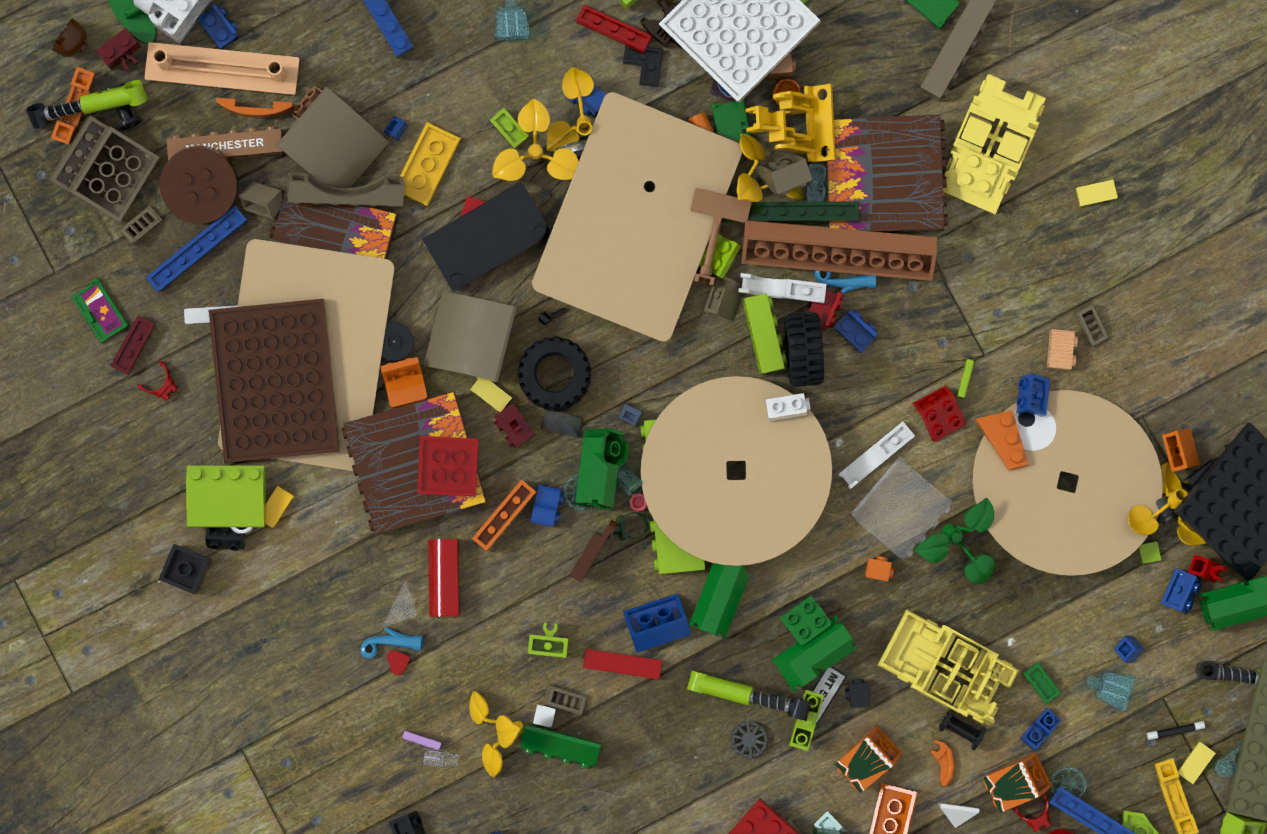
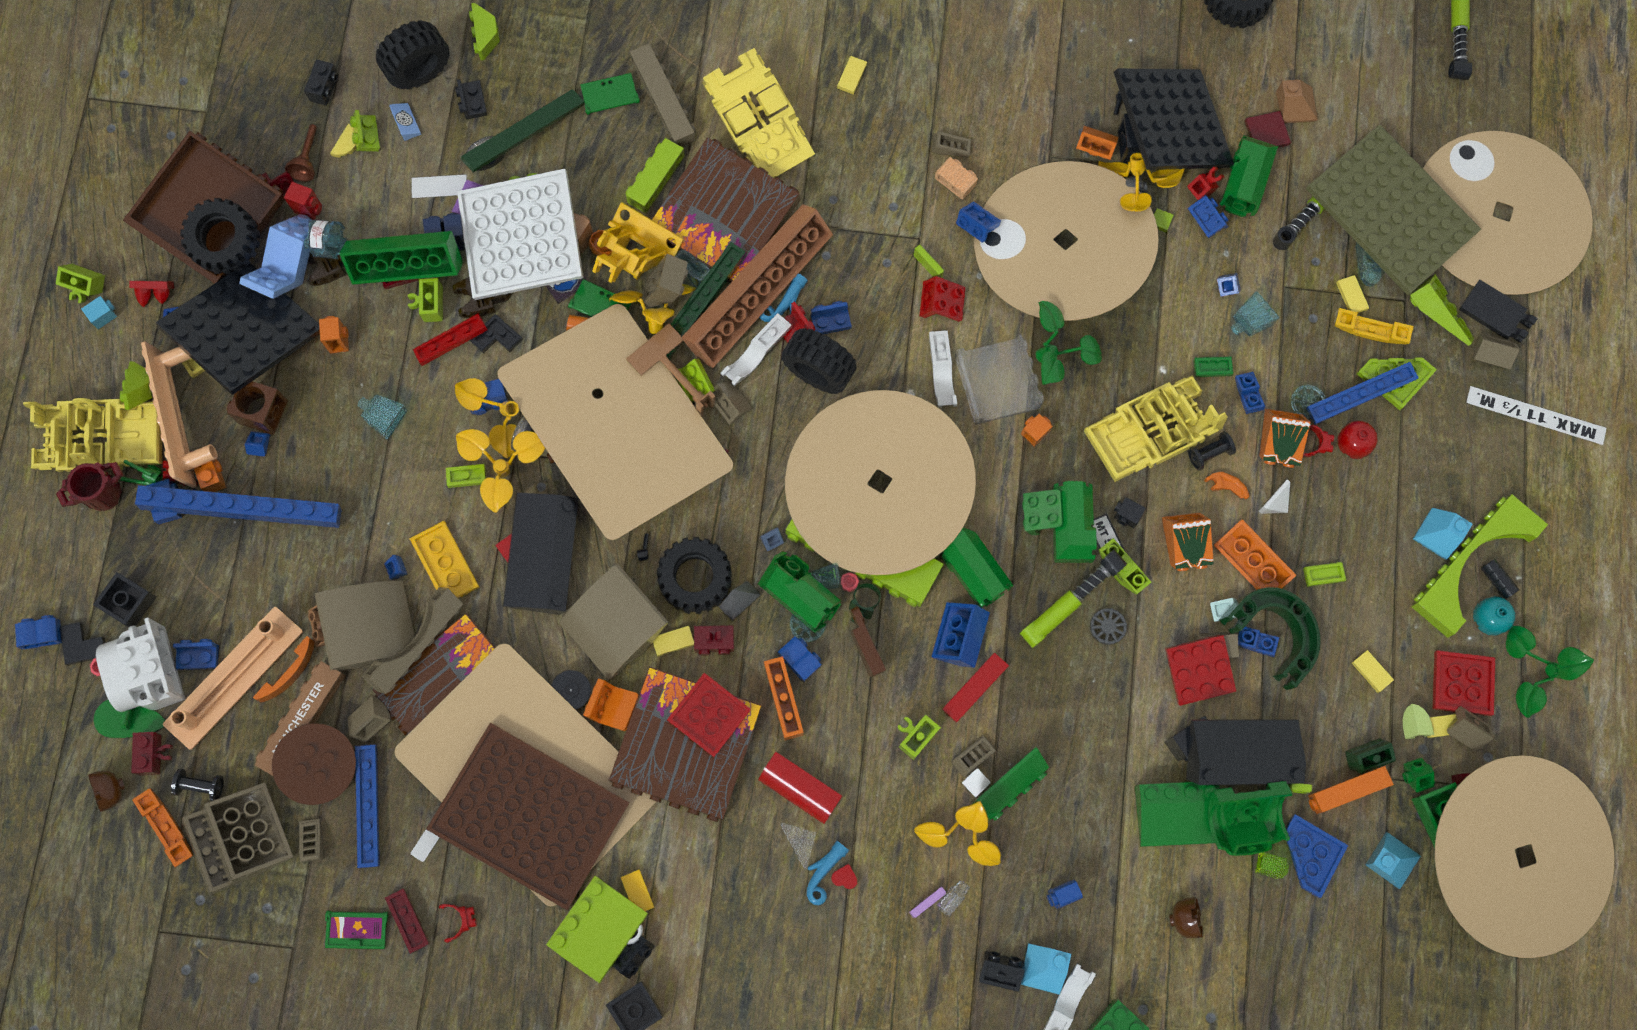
camera: 60 degrees left, 10 degrees down
(131, 93) = (190, 766): piece -> none
(763, 333) = (782, 386): lime brick -> none
(787, 407) = (857, 404): white brick -> none
(879, 92) = (655, 175): none -> lime brick
(1005, 438) = (997, 261): orange wing -> none
(1175, 730) = (1316, 294): black bar -> none

